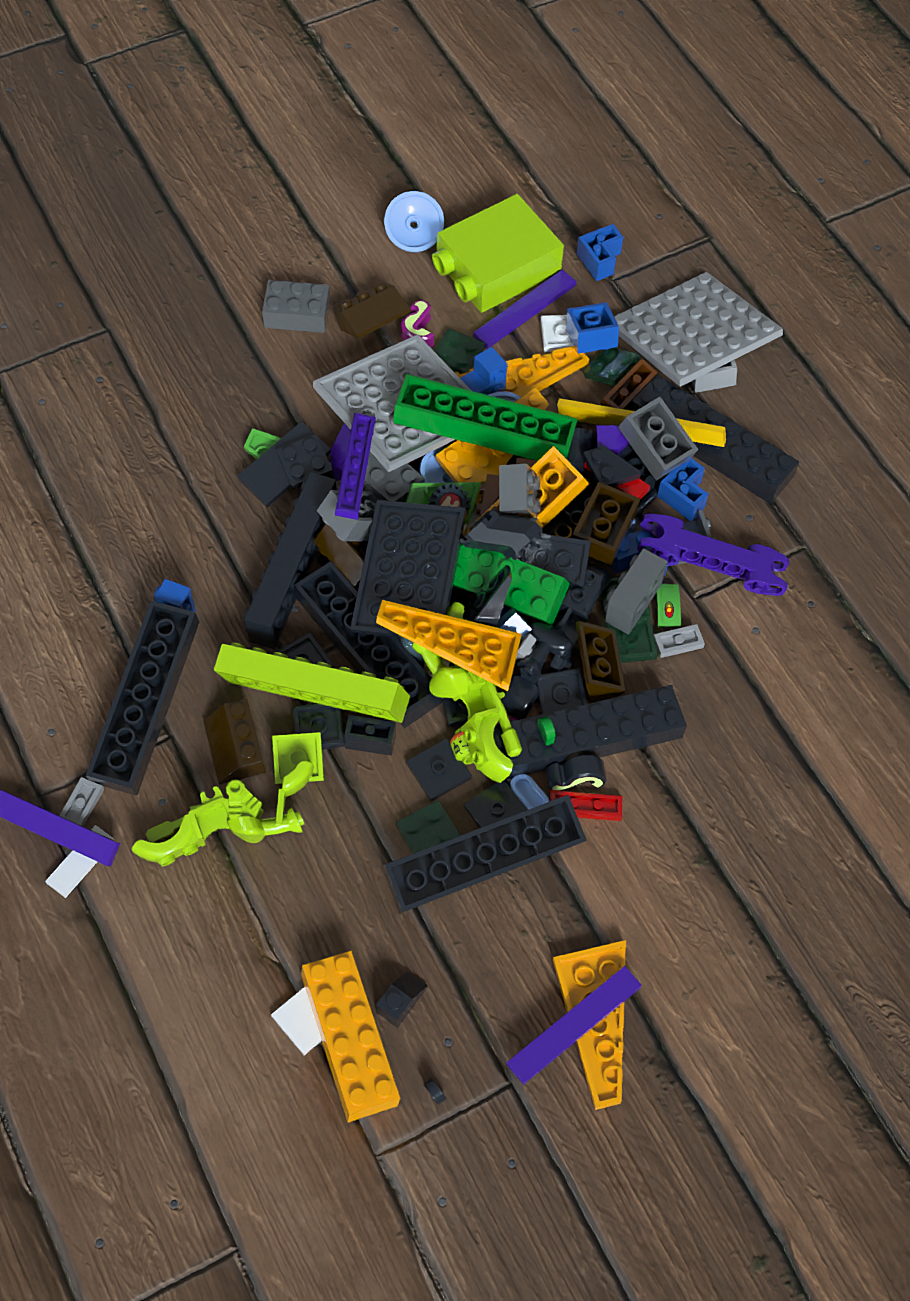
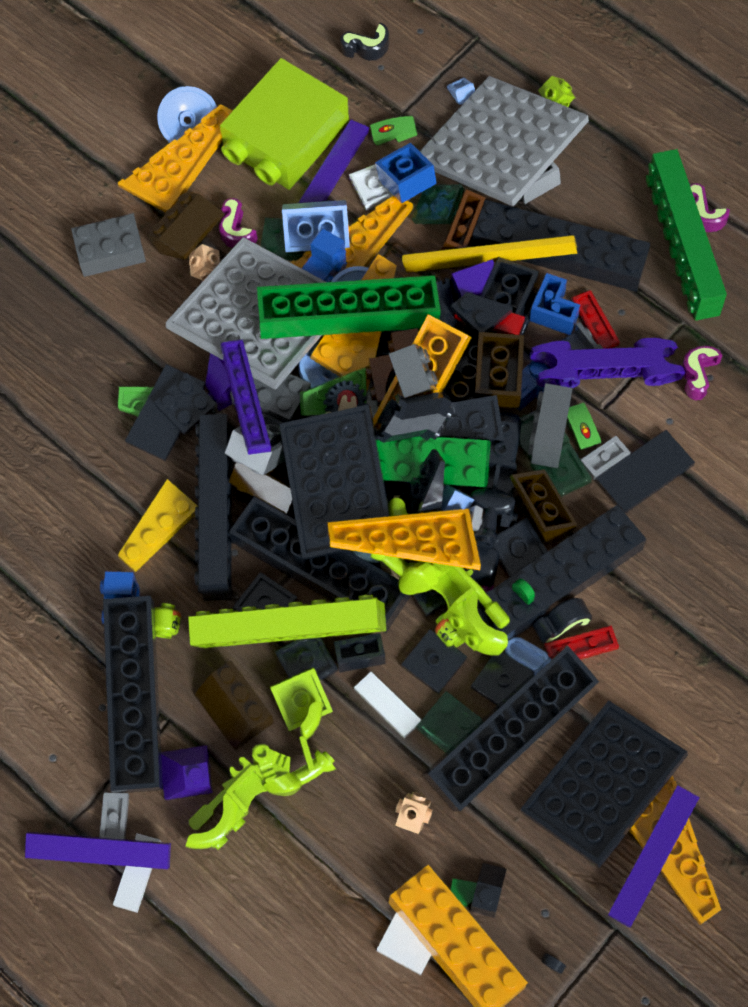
camera: 15 degrees left, 5 degrees up
(165, 788) = (186, 772): none -> dark purple slope
(205, 645) = (167, 621): none -> lime head
(236, 560) = (158, 525): none -> yellow wing
(359, 899) = (407, 817): none -> light nougat brick
(374, 343) = (203, 261): none -> light nougat brick
(375, 990) = (463, 891): none -> green tile
(378, 793) = (387, 704): none -> white tile
(387, 257) = (178, 163): none -> light orange wing
(478, 337) = (306, 220): none -> light blue slope
(553, 938) = (604, 783): none -> black plate
(598, 289) = (394, 128): none -> bright green slope
(599, 250) = (378, 89): blue brick -> none
(602, 212) = (367, 47): none -> black animal
(658, 438) = (516, 268): dark grey brick -> none
(675, 276) = (461, 90): none -> light blue slope
(712, 667) = (645, 471): none -> black tile
(720, 515) = (595, 320): none -> red tile
(765, 302) = (557, 91): none -> lime brick
(796, 593) = (695, 374): none -> magenta animal
(836, 466) = (686, 235): none -> green brick
(858, 455) = (714, 219): none -> magenta animal

